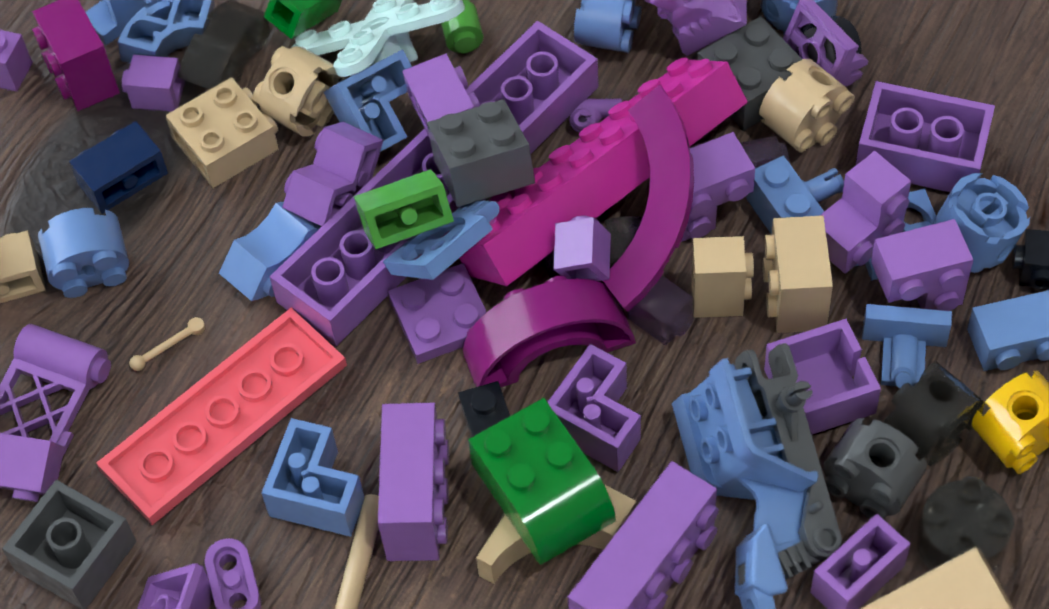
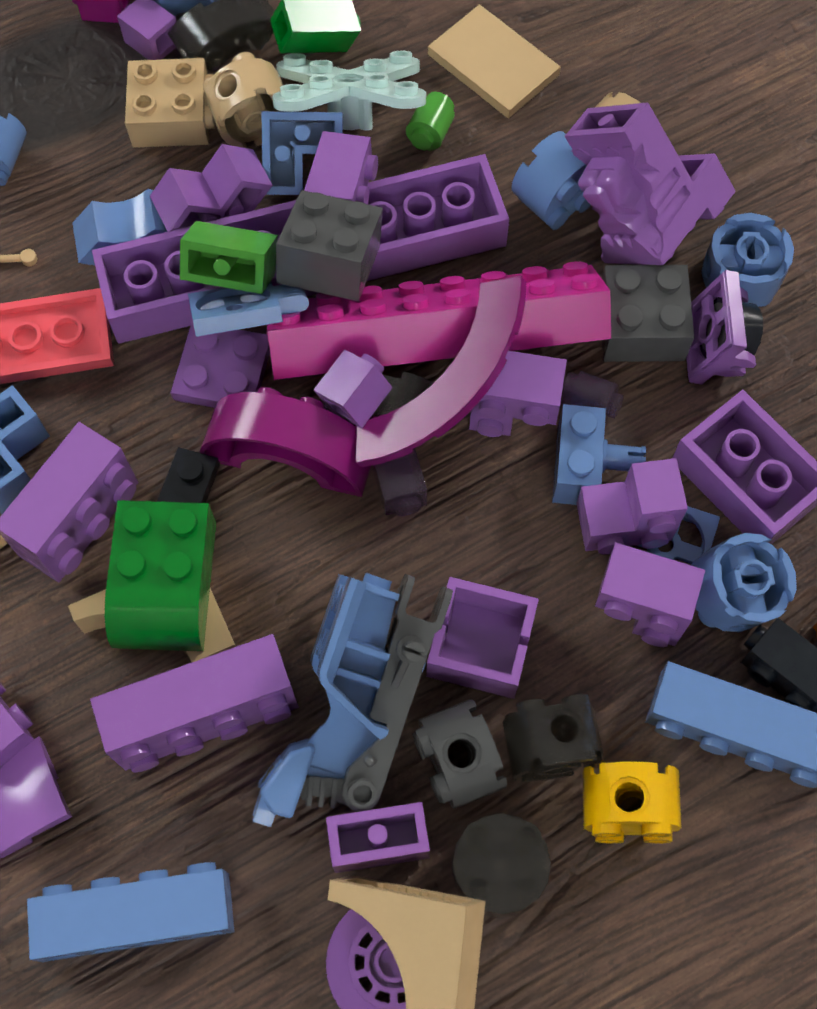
camera: 30 degrees right, 10 degrees up
(118, 167) = (67, 84): dark blue brick -> none
(590, 408) = (262, 528): medium lavender brick -> none
(591, 112) = (476, 263): medium lavender arm -> none
(720, 276) = (464, 485): tan brick -> none
(797, 273) = (535, 526): tan brick -> none
(805, 105) = (664, 372): tan brick -> none
(905, 339) = (589, 650): medium blue piece -> none

